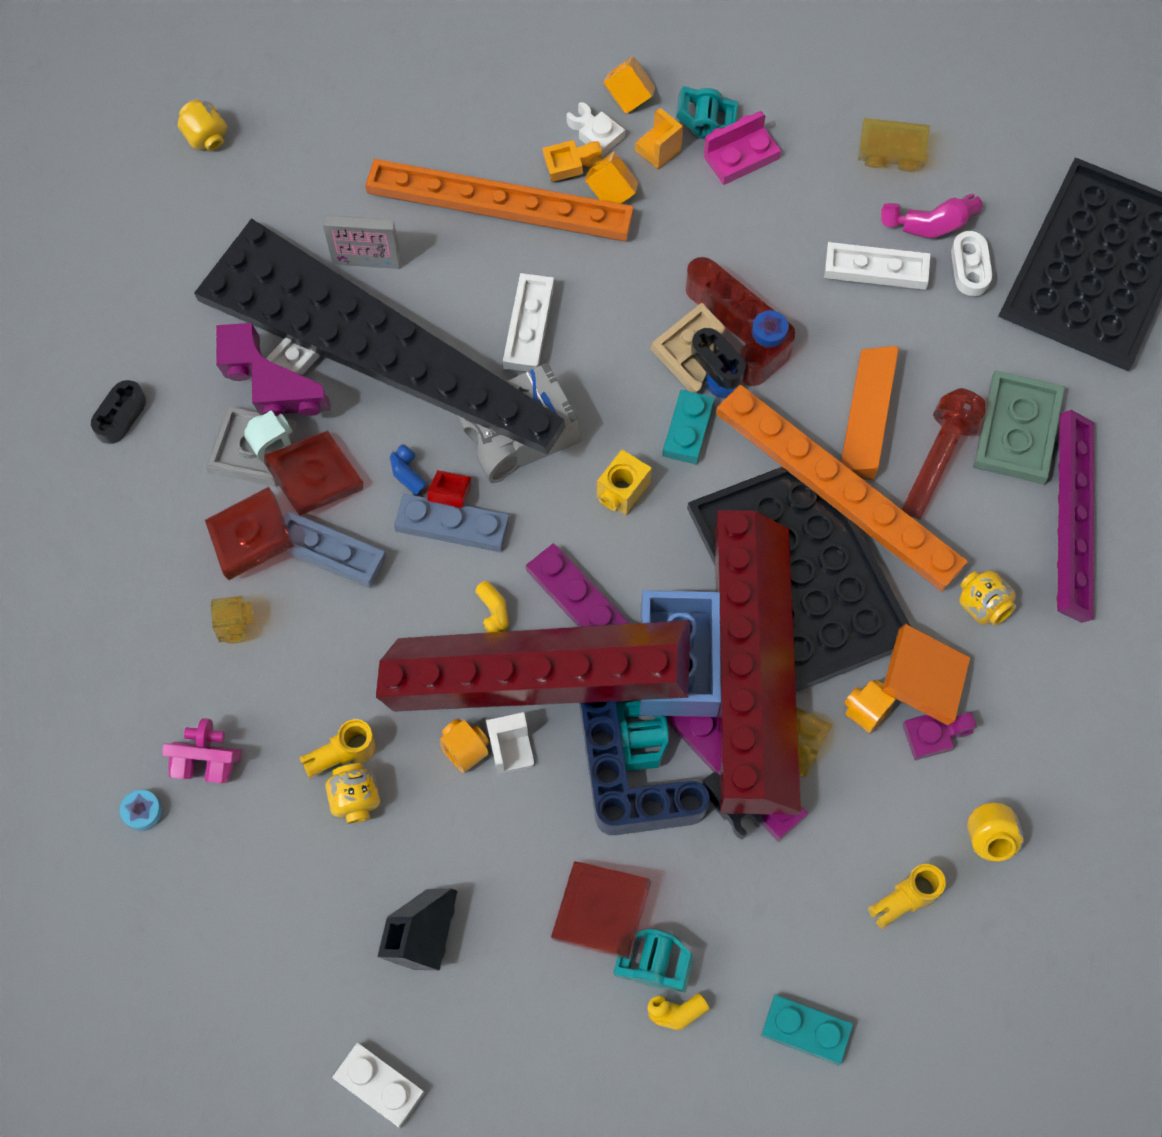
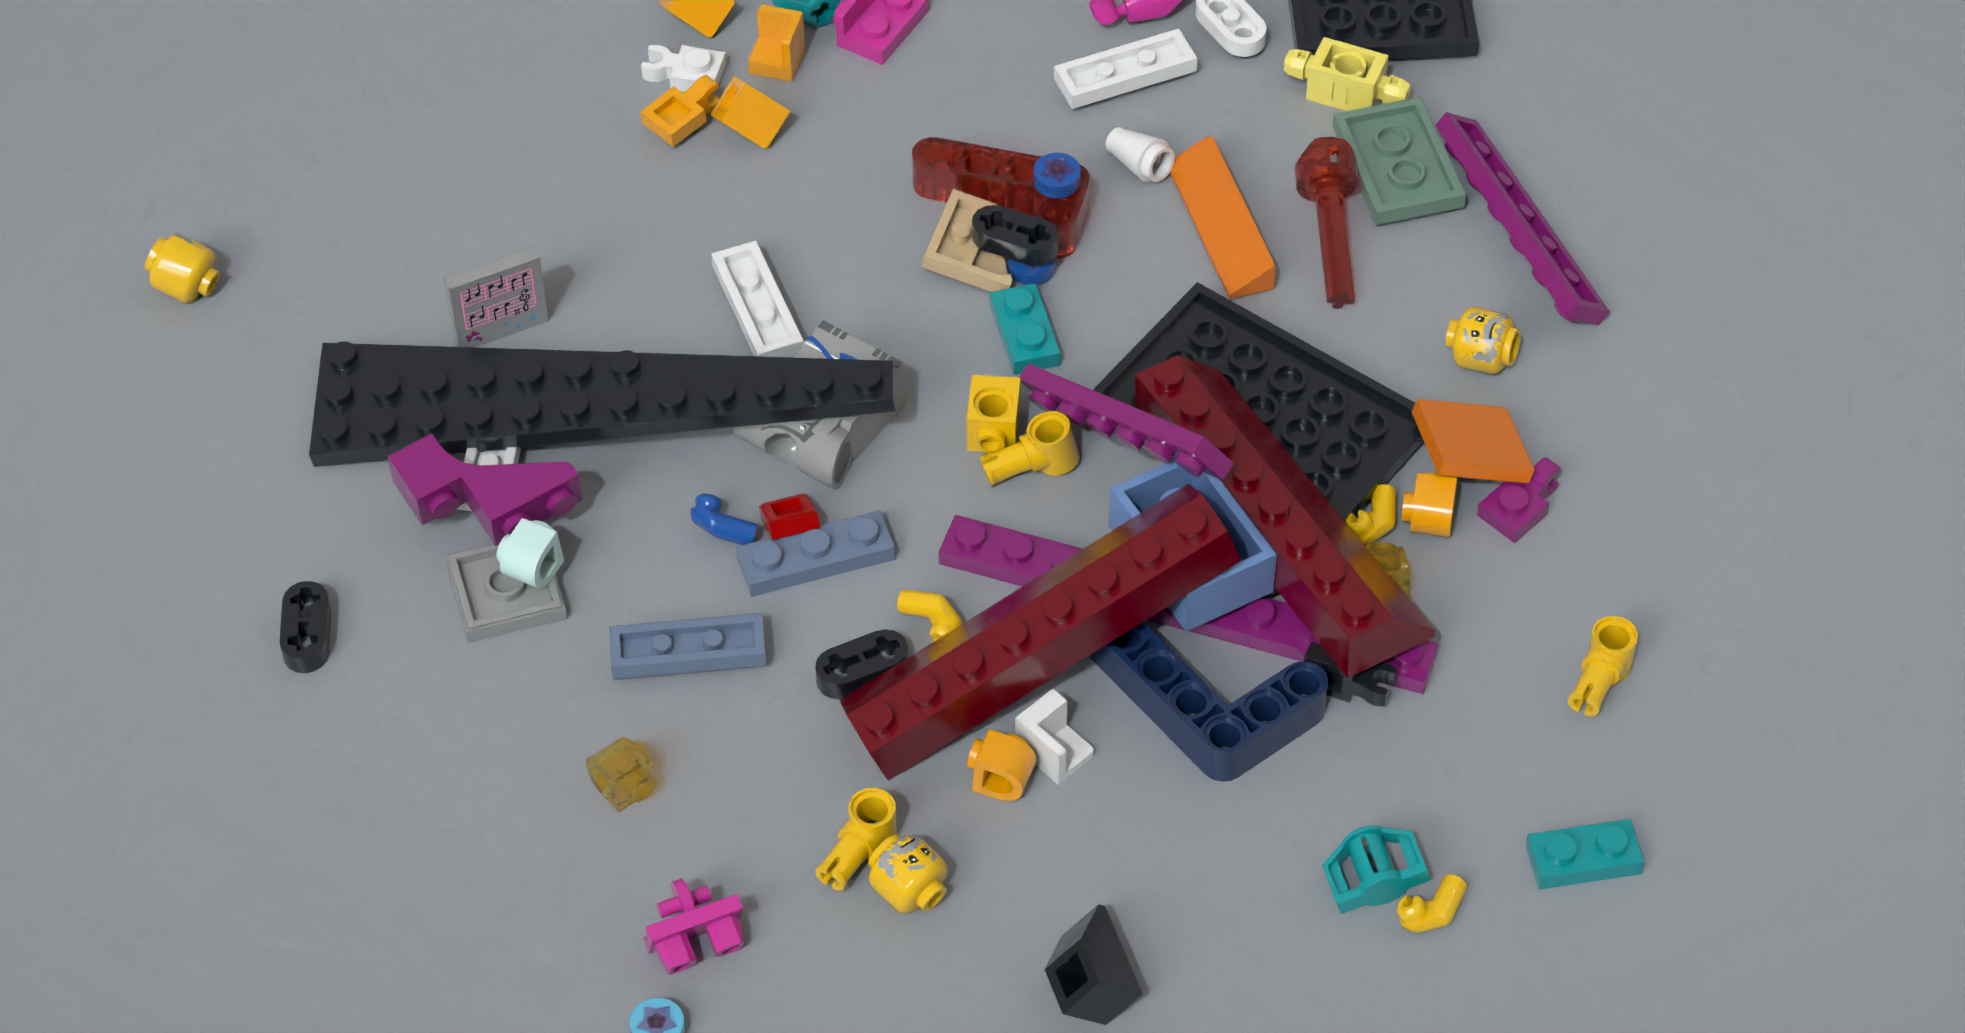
camera: 30 degrees left, 15 degrees down
(248, 533) = (578, 672): clear red tile -> none
(313, 472) = (609, 574): clear red tile -> none
(428, 611) = (859, 661): none -> black beam
(500, 199) = (623, 190): orange plate -> none
(601, 910) = (1279, 848): clear red tile -> none
(631, 522) = (1045, 447): none -> yellow pin
(642, 735) = (1207, 650): teal piece -> none
(688, 551) = (1129, 424): none -> magenta plate
(828, 696) = (1380, 519): none -> yellow arm
(842, 488) = (1245, 302): orange plate -> none
(846, 336) = (1142, 154): none -> white cone
(995, 832) = (1650, 558): yellow head -> none
(1024, 331) = (1345, 76): none -> light yellow piece

